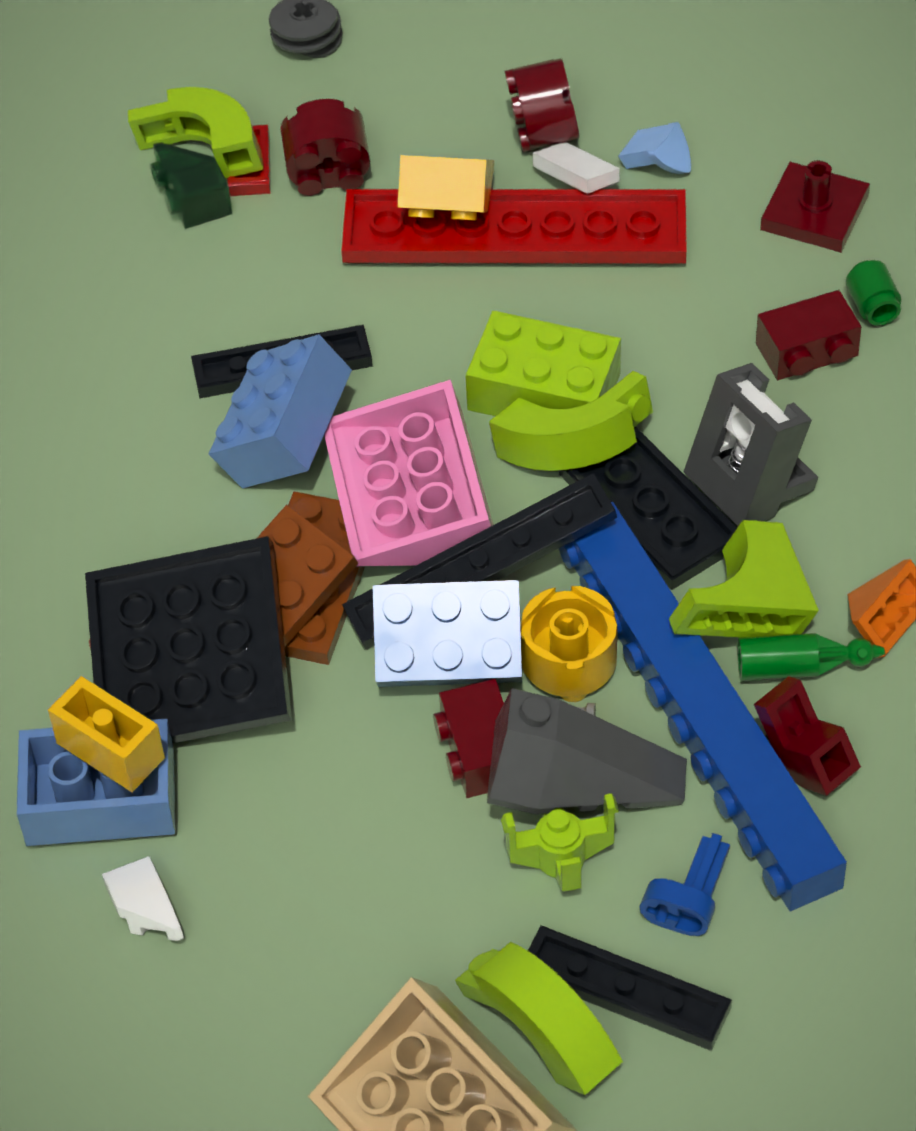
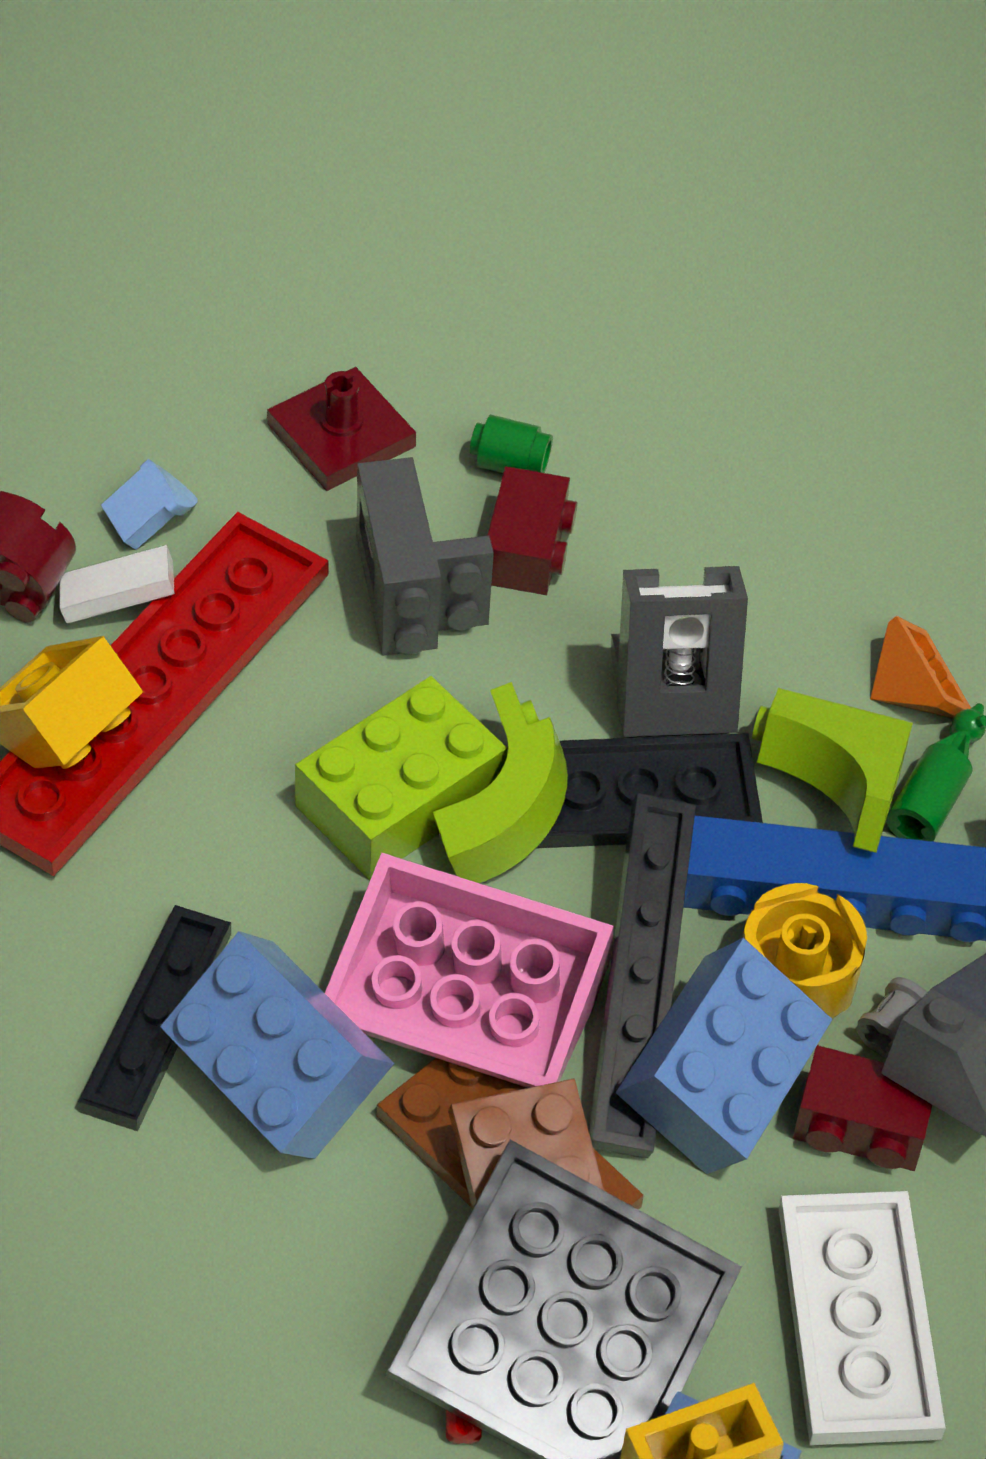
camera: 65 degrees left, 0 degrees up
(319, 810) = (860, 1318): none -> white plate
(706, 282) = (409, 578): none -> dark grey brick

